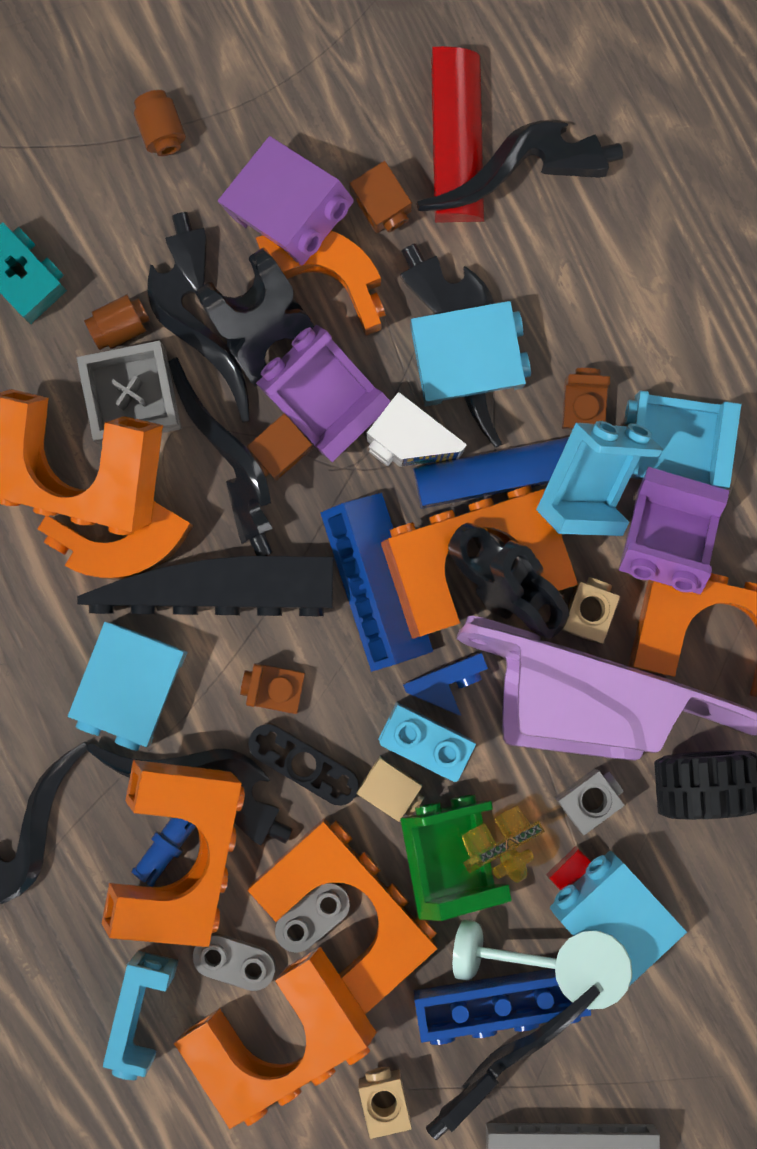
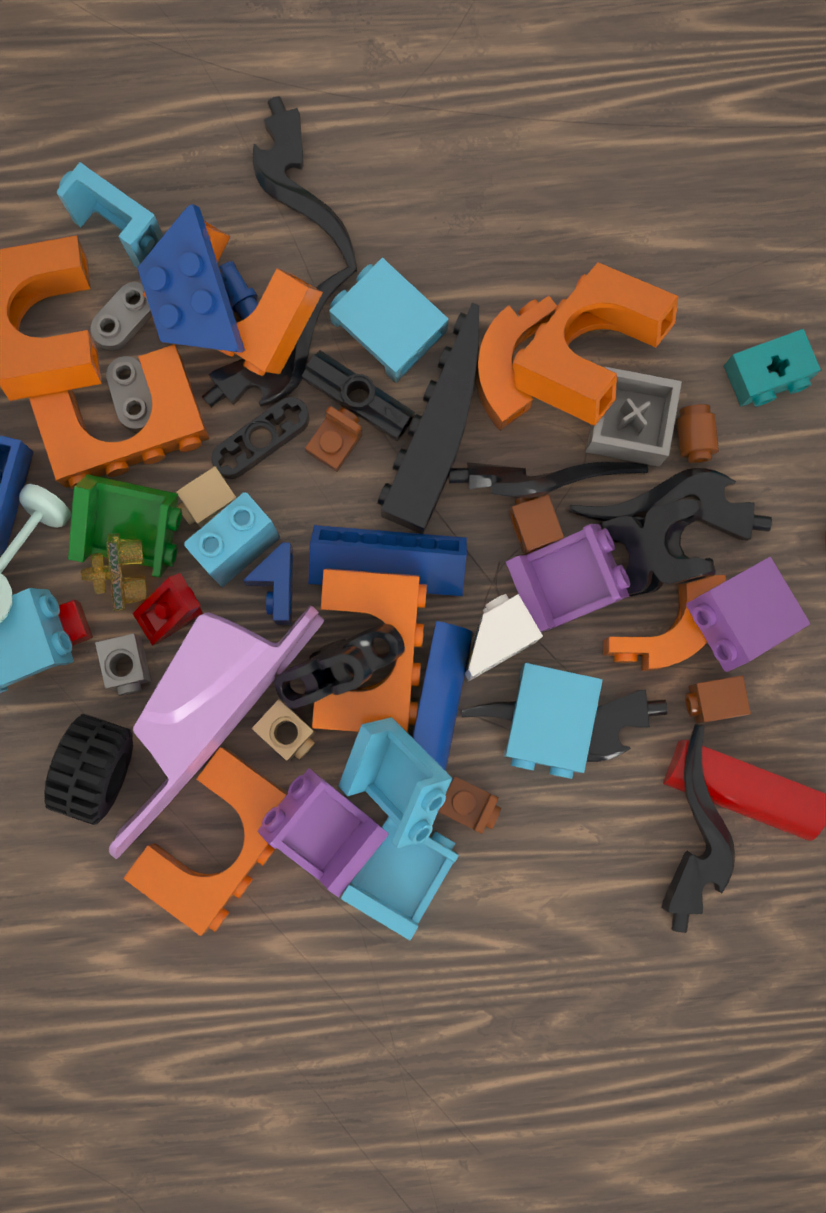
camera: 110 degrees right, 5 degrees down
(188, 897) = (188, 289): none -> blue wing
(215, 710) = (339, 381): none -> black piece
(519, 780) = (167, 609): none -> red slope

